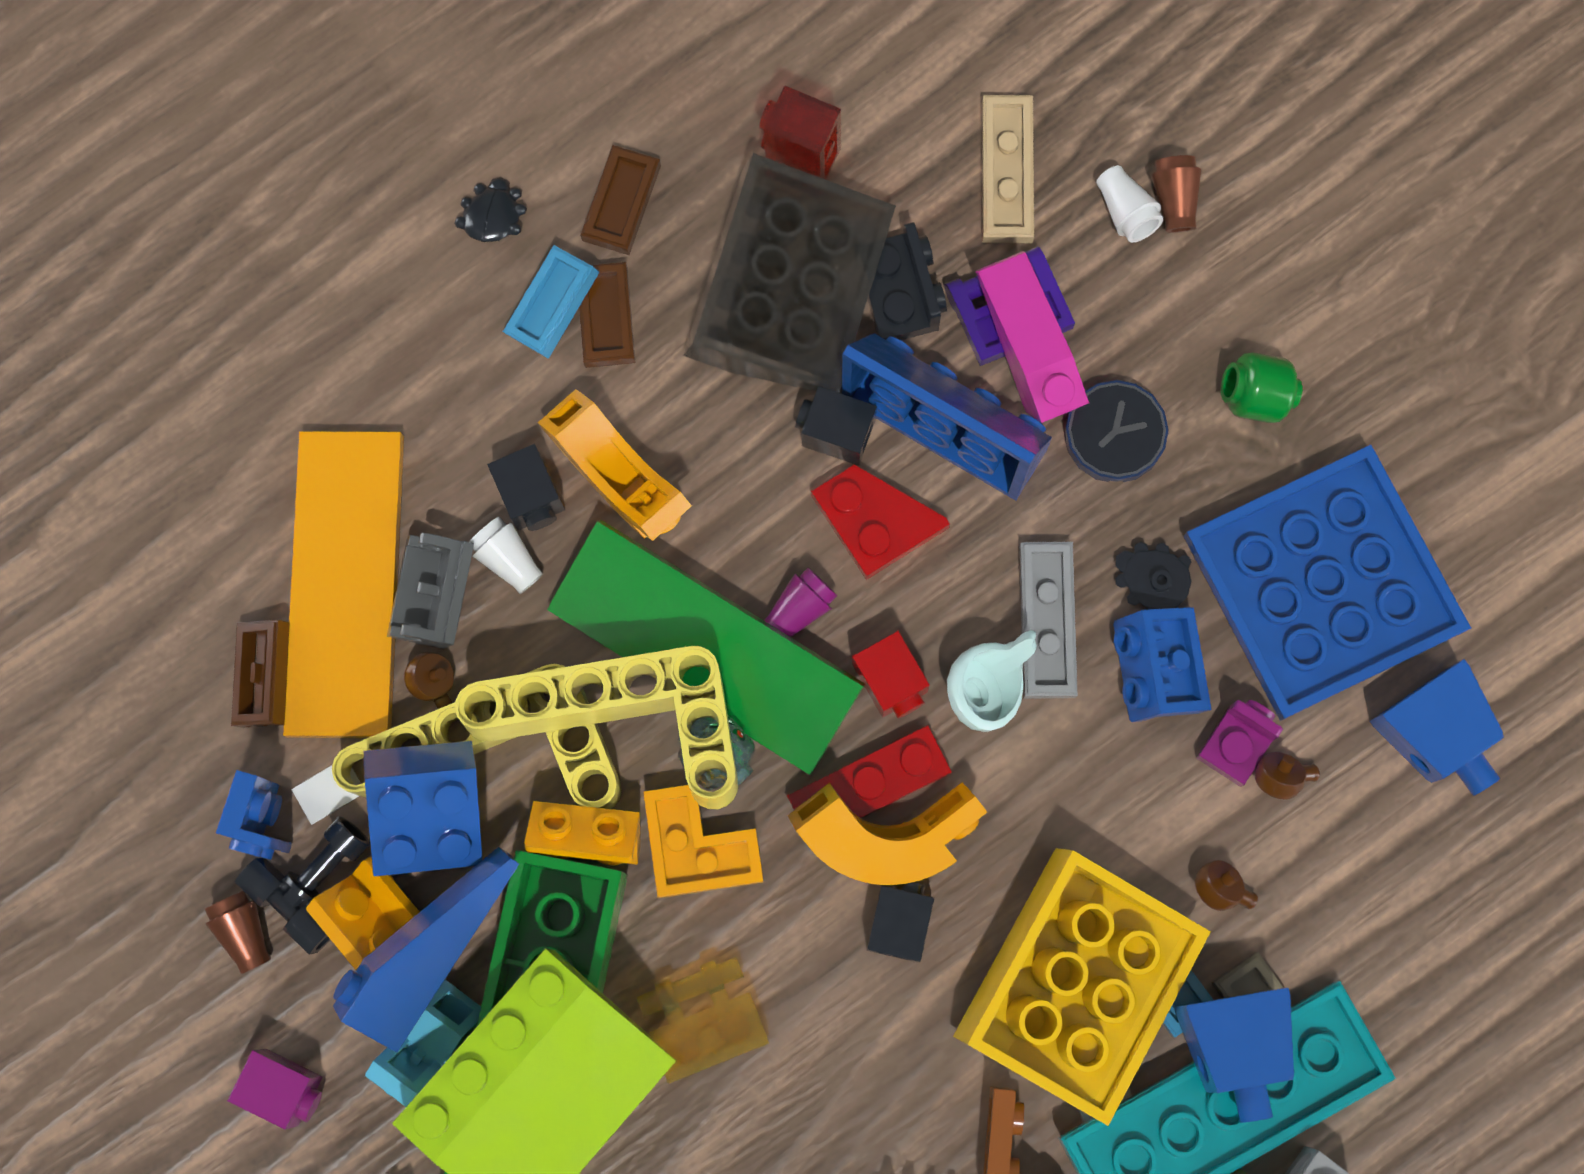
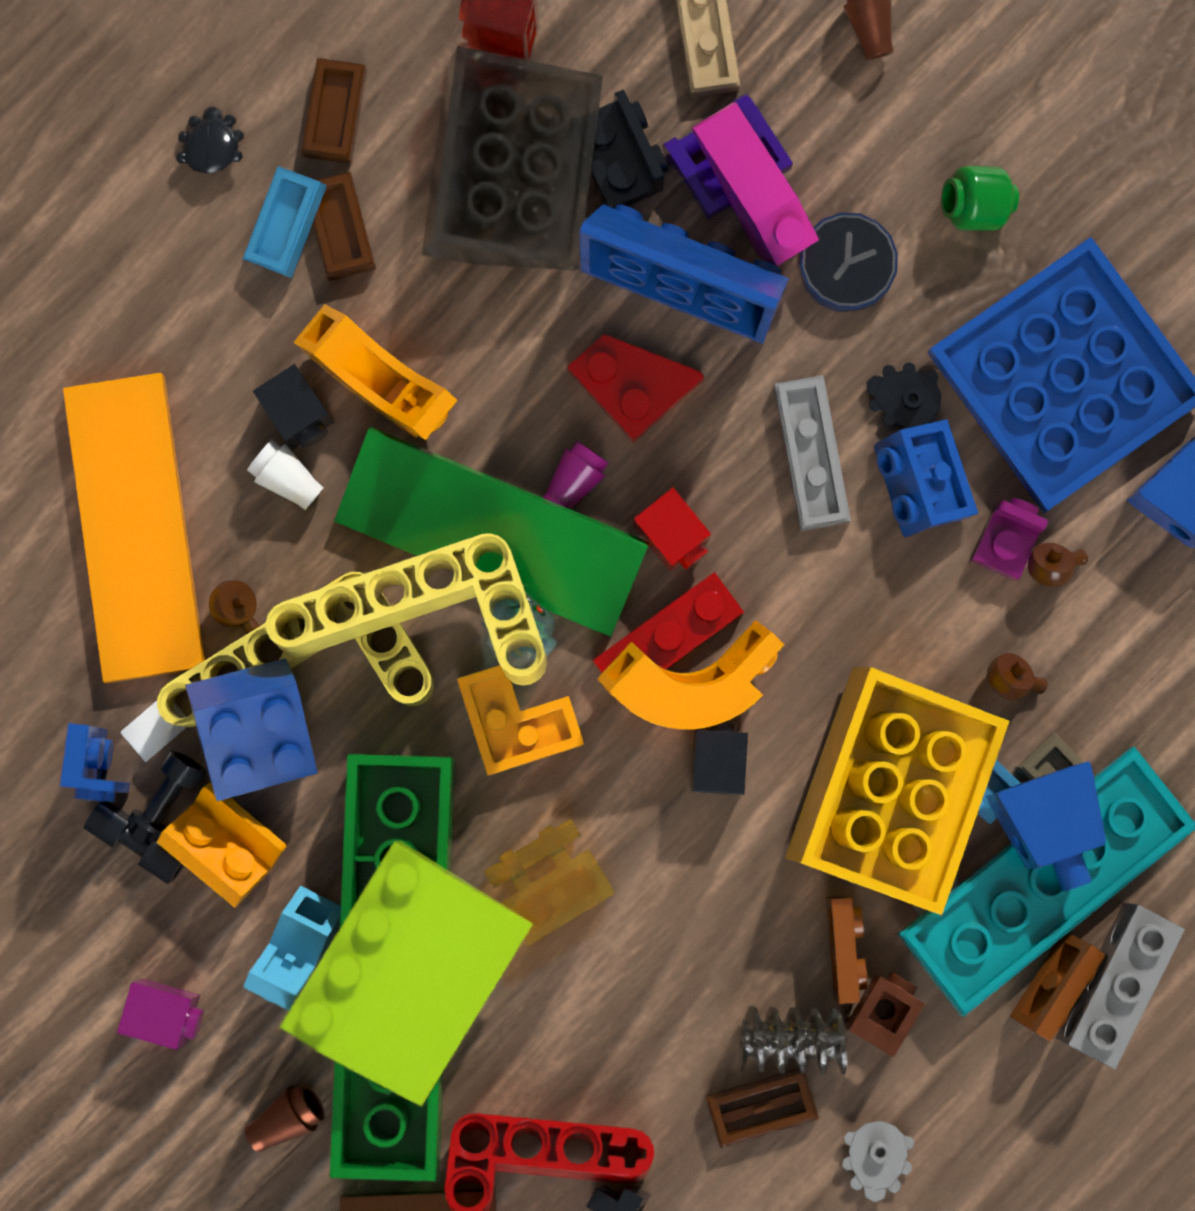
camera: 15 degrees left, 5 degrees up
(238, 930) = (95, 873): copper cone -> none
(267, 673) = (76, 625): reddish brown tile -> none
(408, 968) = (266, 881): blue slope -> none
(430, 590) = (219, 521): dark grey hinge -> none
(584, 833) = (407, 727): light orange bracket -> none
(836, 425) = (580, 298): black brick -> none
(988, 682) = (766, 522): light aqua hat -> none
(1130, 206) = (828, 40): white cone -> none

